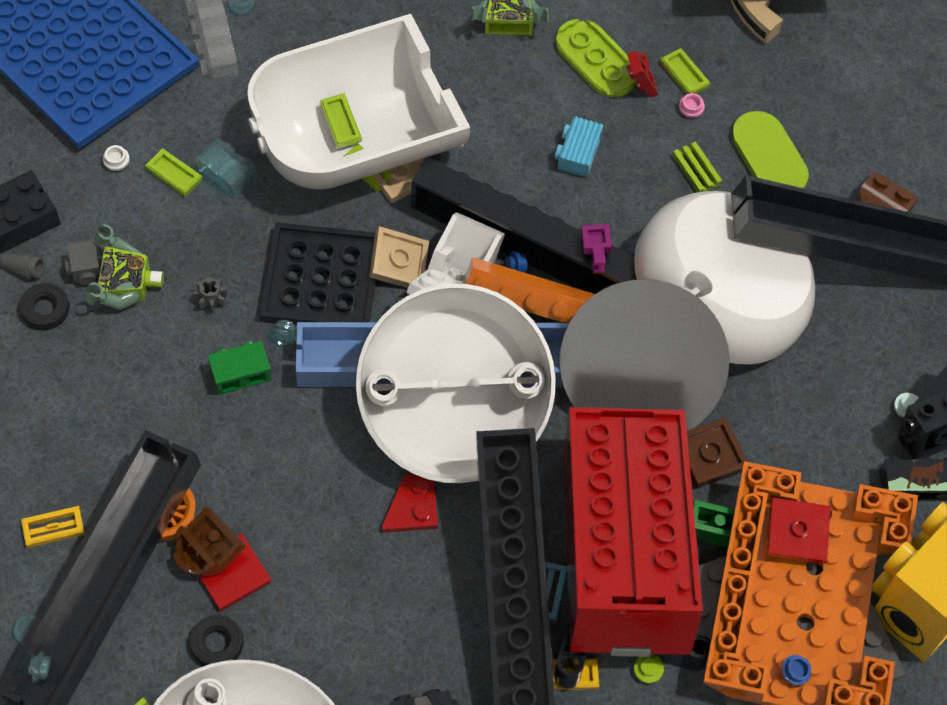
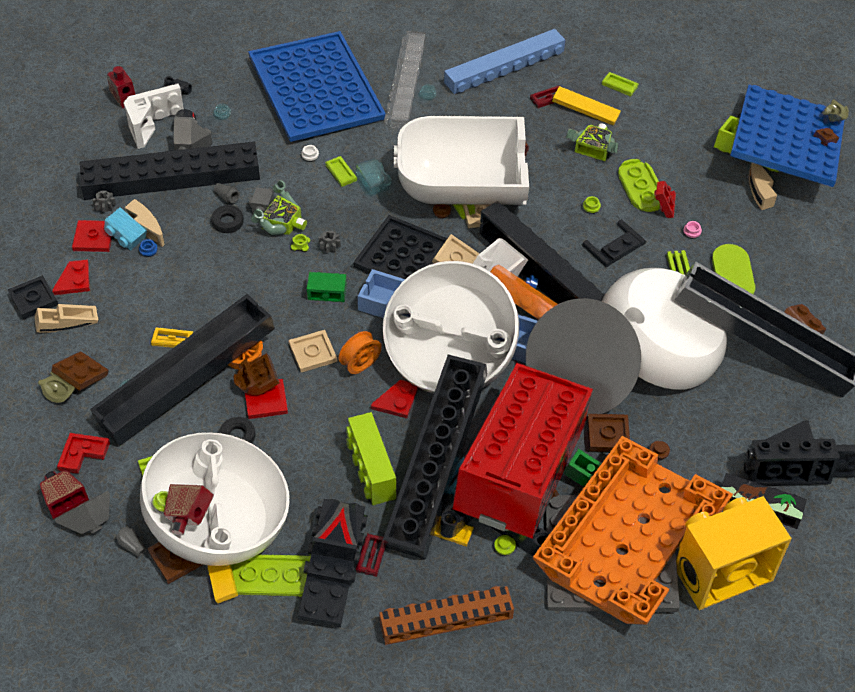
camera: 25 degrees right, 10 degrees down
(40, 666) = (123, 407): clear light blue plate -> none
(168, 302) = (303, 240): none -> lime plate
(263, 473) = (312, 351): none -> tan tile
(284, 332) = (362, 275): clear light blue plate -> none
(336, 457) = (360, 352): none -> orange wheel
(340, 121) = (456, 169): lime tile -> none
(345, 194) = (441, 210): none -> reddish brown plate
(424, 614) = (371, 459): none -> lime brick
(544, 111) = (591, 204): none -> lime plate
(579, 146) = (605, 229): medium azure brick -> none
(596, 241) = (582, 278): magenta plate -> none
(606, 167) = (617, 248): none -> black plate
(684, 72) = (697, 209): lime tile -> none
(785, 453) = (661, 449): none -> reddish brown plate
(796, 670) = (599, 573): blue plate -> none
(798, 530) = (640, 490): red plate -> none

